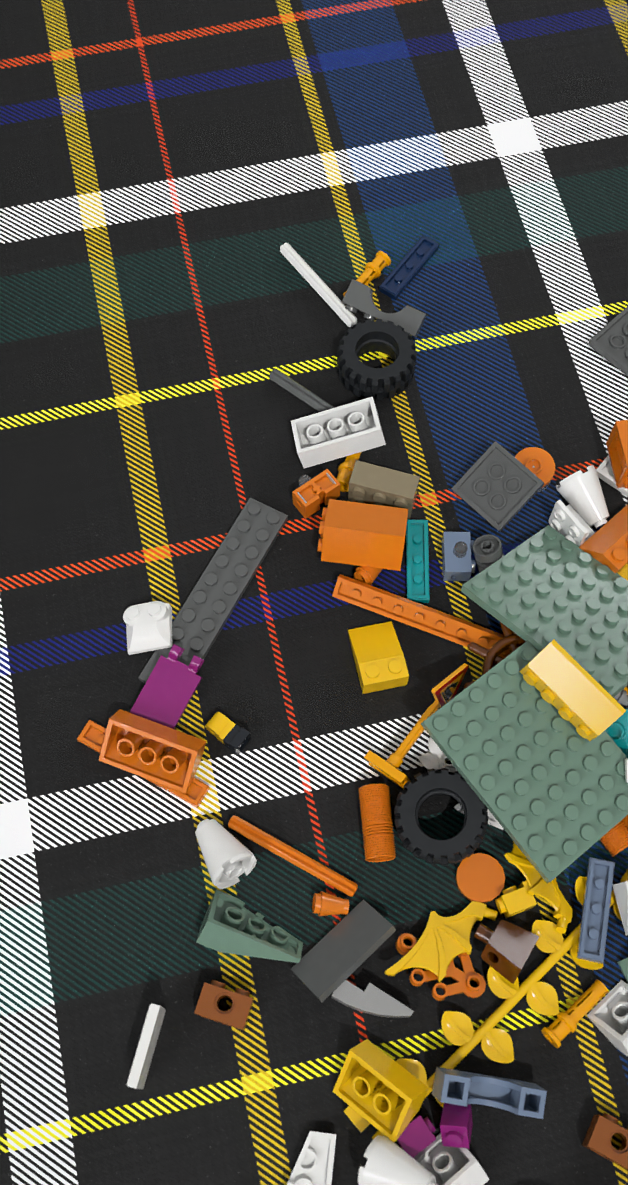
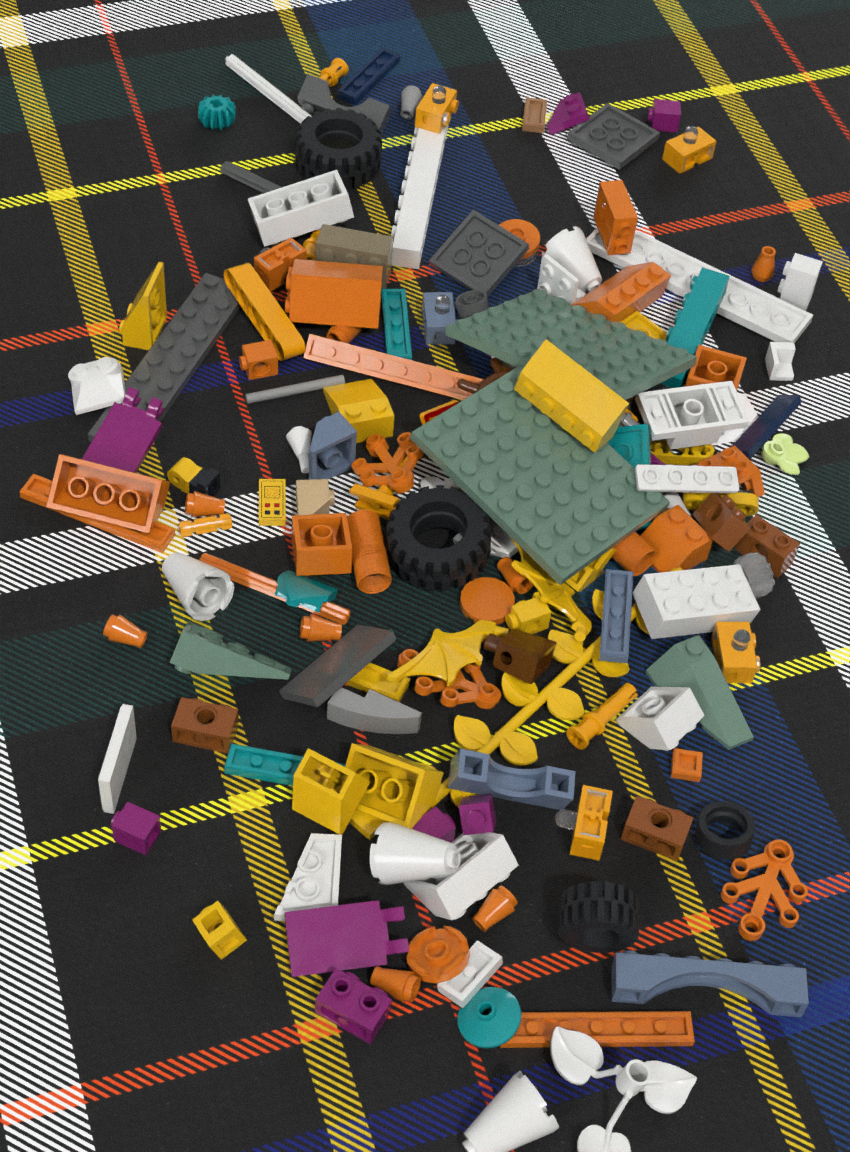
camera: 10 degrees left, 15 degrees down
(159, 1114) = (136, 828): none -> magenta brick
(160, 899) = (123, 631): none -> orange cone
(193, 549) = (146, 313): none -> yellow slope
(233, 761) = (200, 505): none -> orange cone
(236, 782) = (205, 525): none -> light orange axle
(269, 311) = (216, 112): none -> teal gear
(292, 600) = (259, 360): none -> orange brick
(292, 1052) = (262, 764): none -> teal tile
(295, 758) = (272, 502): none -> yellow tile
(299, 548) = (264, 311): none -> light orange beam
(317, 863) = (303, 591): none -> teal slope
(324, 630) = (293, 389): none -> light grey bar
(324, 695) = (300, 442): none -> white cone
(327, 1092) = (327, 791): none -> yellow slope
(330, 766) = (314, 497): none -> tan slope
(336, 817) = (321, 544): none -> orange brick
(350, 709) = (332, 447): none -> sand blue slope
(379, 962) = (374, 678): none -> yellow tile
(402, 729) = (400, 479): none -> orange plant
(445, 298) = (410, 100): none -> light grey cone
(449, 399) = (417, 198): none -> white brick
(468, 318) = (436, 108): none -> light orange piece
(502, 846) = (515, 580): none -> orange cone
(553, 1137) = (588, 822): none -> light orange piece
(559, 315) = (534, 115): none -> medium nougat tile
(591, 316) = (568, 113): none -> magenta wing

